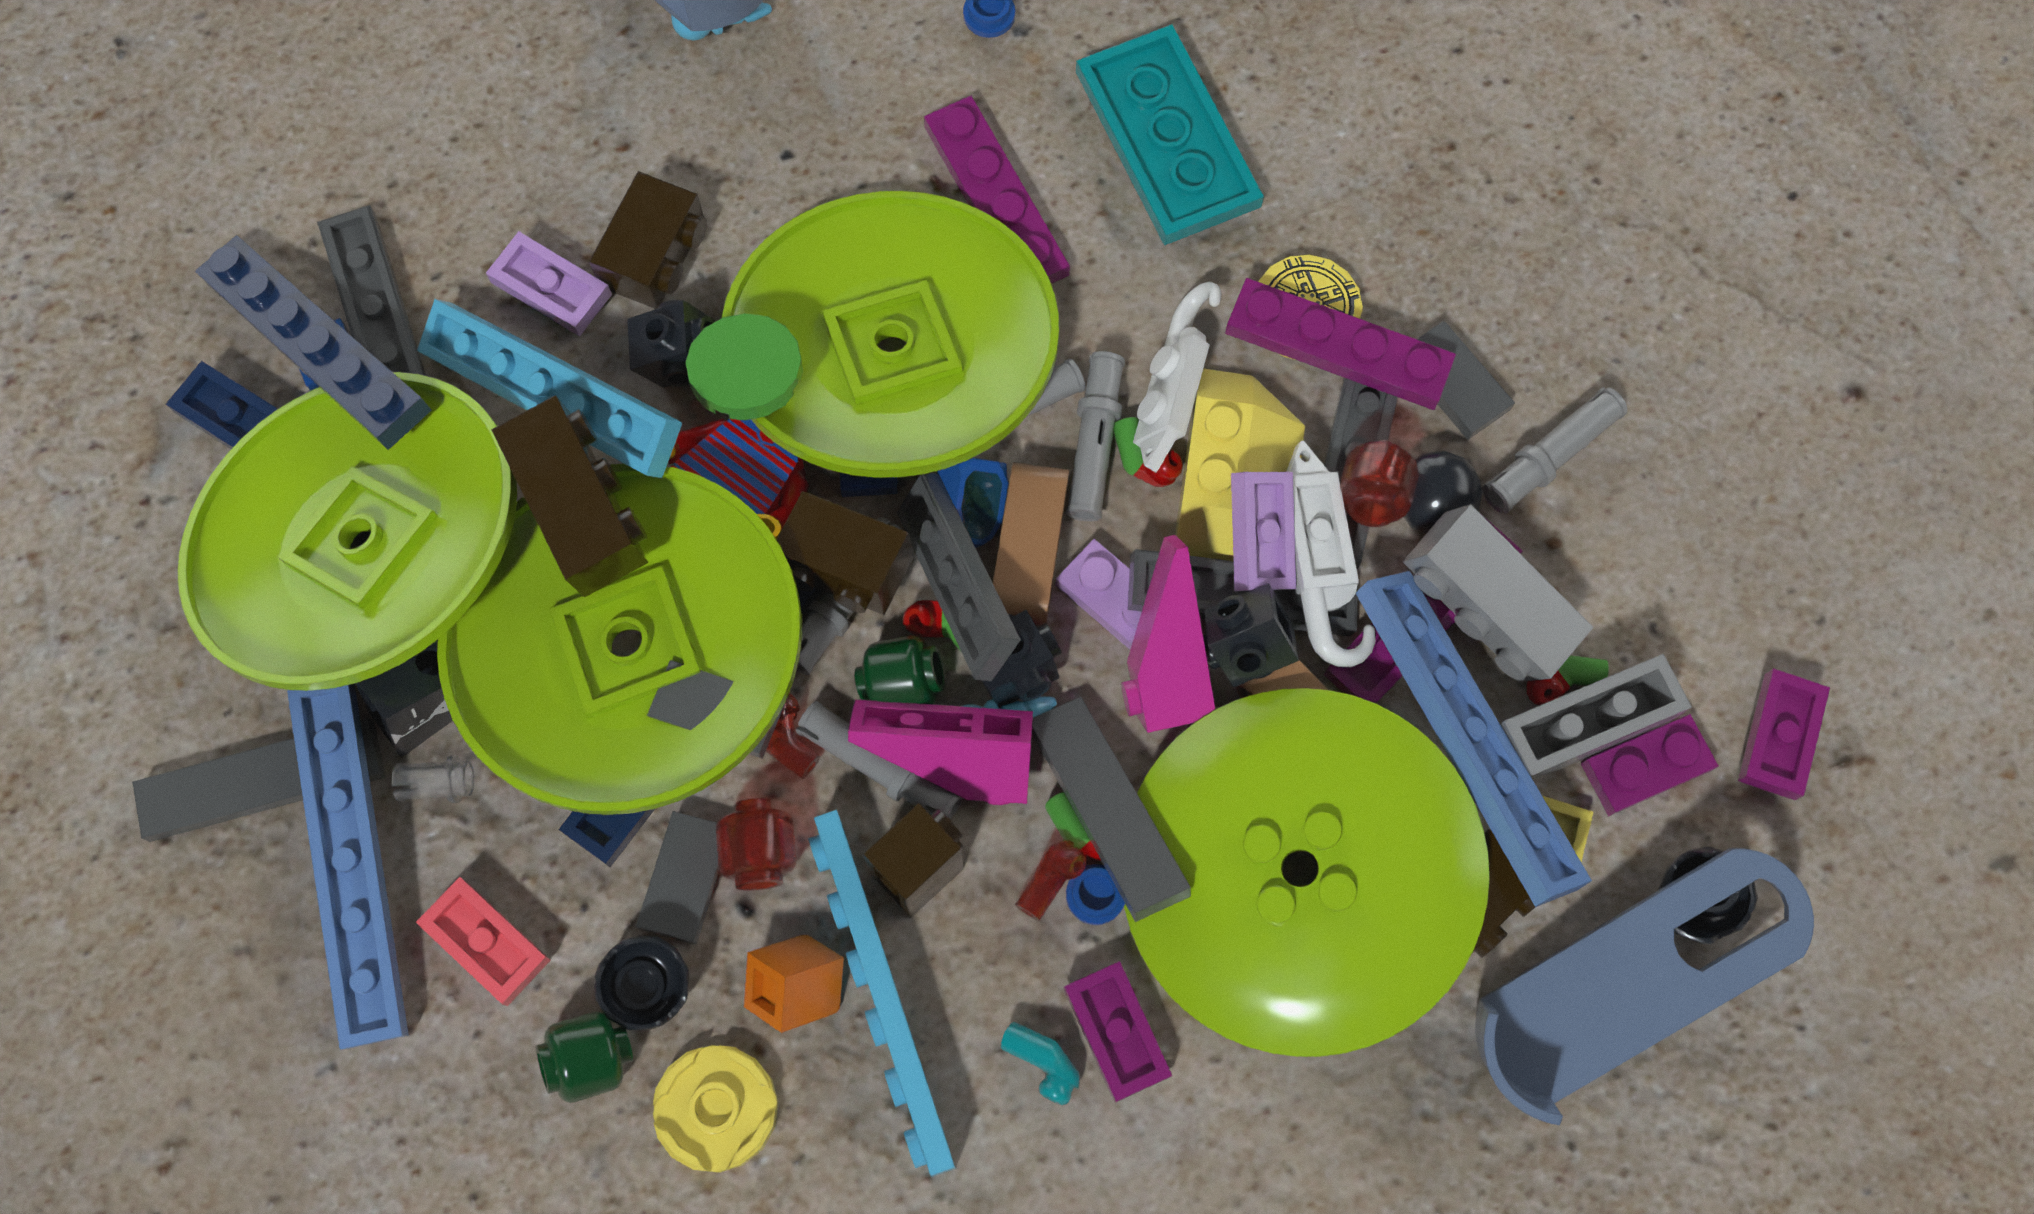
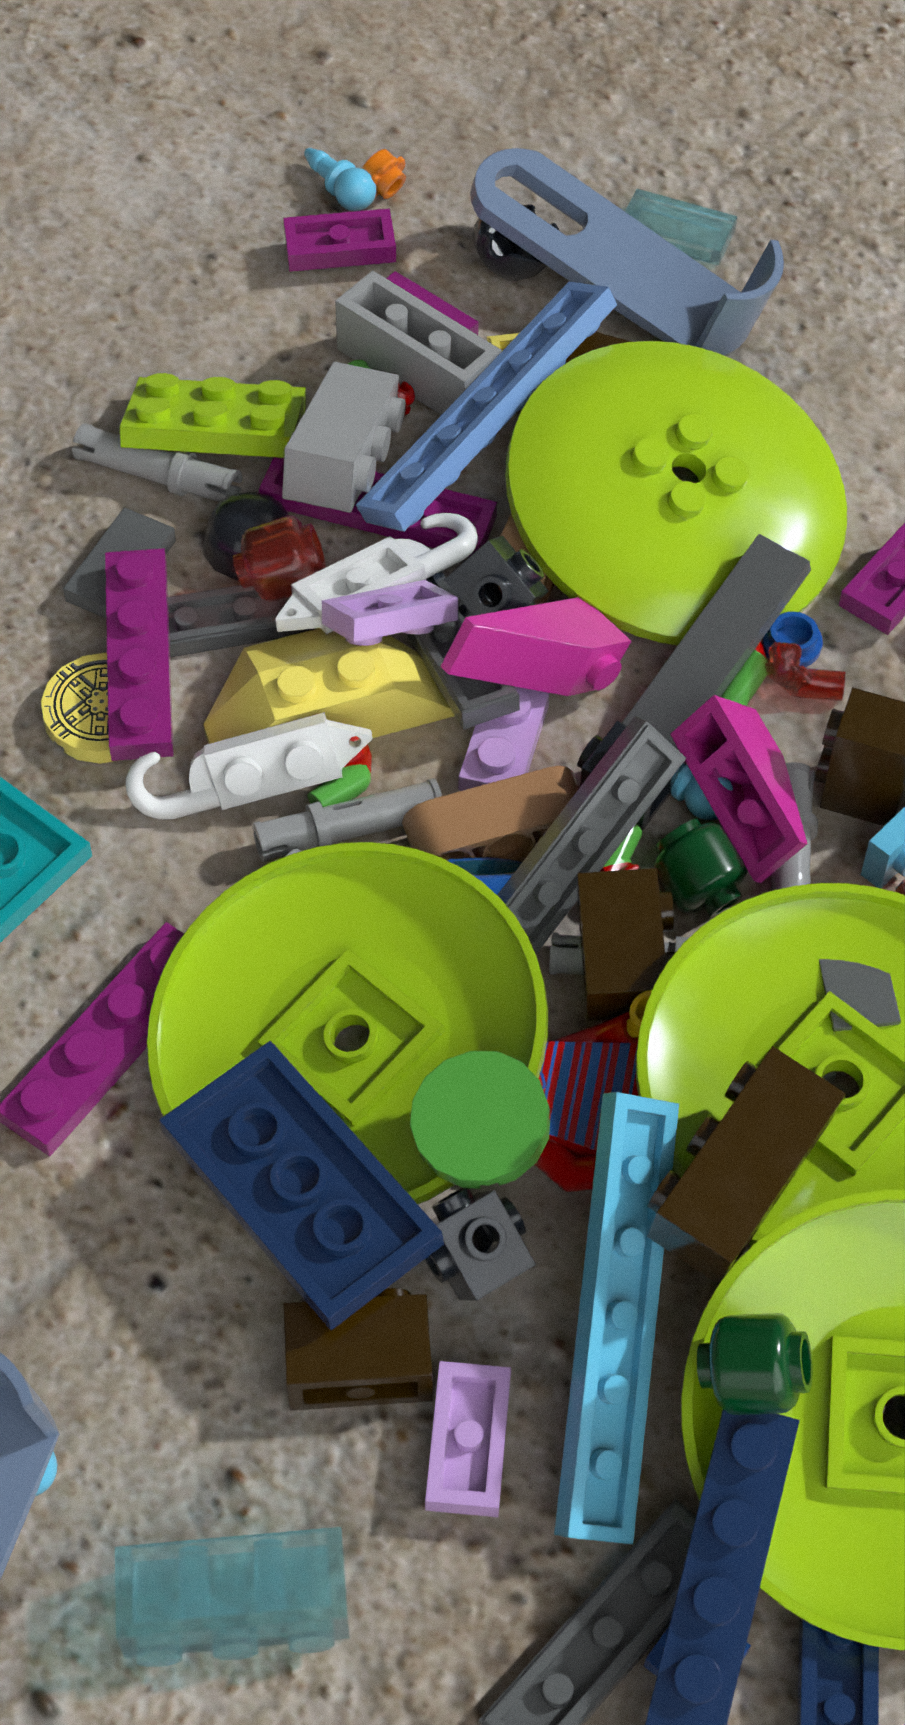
camera: 115 degrees left, 15 degrees down
(422, 420) = (756, 1364): none -> dark green head
(533, 98) = (231, 1595): none -> clear light blue brick
(770, 231) = (301, 1184): none -> dark blue plate
(1587, 512) = (212, 416): none -> lime plate
(1675, 1089) = (689, 227): none -> clear light blue tile
(1858, 781) = (349, 184): none -> medium azure bar
(1865, 820) = (386, 172): none -> orange plate

